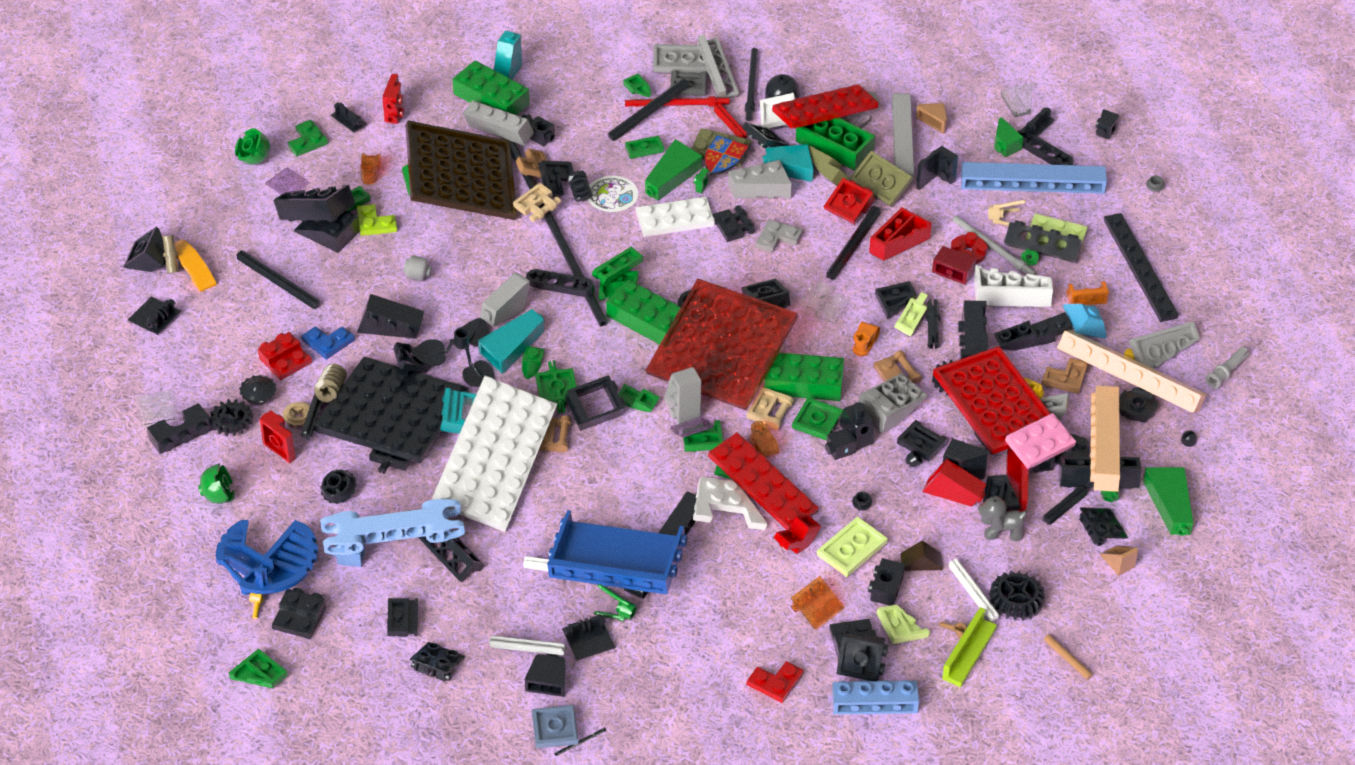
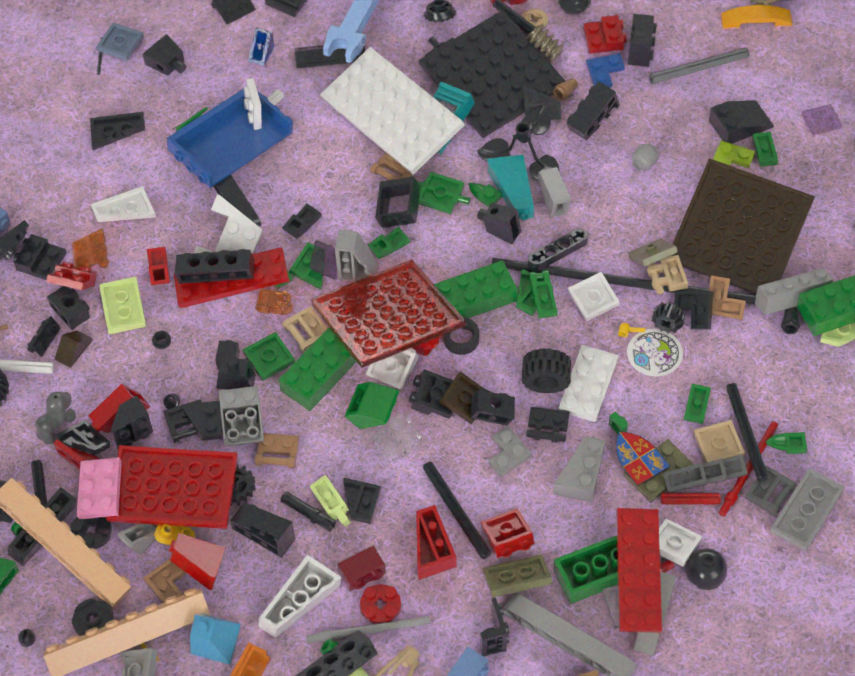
camera: 125 degrees right, 10 degrees up
(280, 317) = (642, 40): none -> black wedge
(314, 204) = (757, 104): black wedge -> none
(370, 168) = (800, 178): clear orange piece -> none
(376, 353) = (565, 89): none -> medium nougat cone
(481, 601) = (261, 46): none -> clear blue slope
(520, 220) = (652, 252): none -> olive plate
(527, 645) = (197, 53): axle -> none
(543, 131) = (772, 323): black brick -> none
(562, 330) = (501, 222): none -> black torso
(573, 540) = (252, 103): none -> white plate
(588, 637) = (180, 97): black hinge -> none
(591, 242) = (593, 296): none -> white plate
(606, 215) = (625, 328): none -> yellow hand
(665, 669) = (115, 127): none -> black wing
(667, 470) = (300, 223): none -> black slope
(670, 122) = (718, 441): none -> tan plate
(672, 170) = (650, 410): green slope -> none
(694, 228) = (546, 370): none -> black tyre
(704, 114) = (705, 474): none -> dark grey slope
(714, 70) = (770, 513): light grey fence -> none
(746, 605) = (125, 206): none -> white wing
(750, 105) = (702, 528): black bar -> none
(751, 251) = (483, 410): none -> black brick
(754, 273) = (459, 395): none -> dark brown plate
(764, 135) = (642, 497): black plate -> none
(769, 483) = (214, 266): none -> black brick
(777, 685) = (45, 188): red plate -> none
(794, 159) = (595, 514): teal slope -> none
(813, 320) = (371, 405): none -> green slope
(827, 166) = (563, 538): olive slope -> none
(859, 589) = (73, 277): none -> red plate
(865, 338) = (330, 443): orange piece -> none
(899, 625) = (25, 294): yellowish green wing -> none
(913, 420) = (205, 418): none -> black wing
(937, 584) = (46, 334): none -> black hinge
(1028, 335) = (235, 583): black slope -> none
(1035, 357) = (197, 558): none -> slope

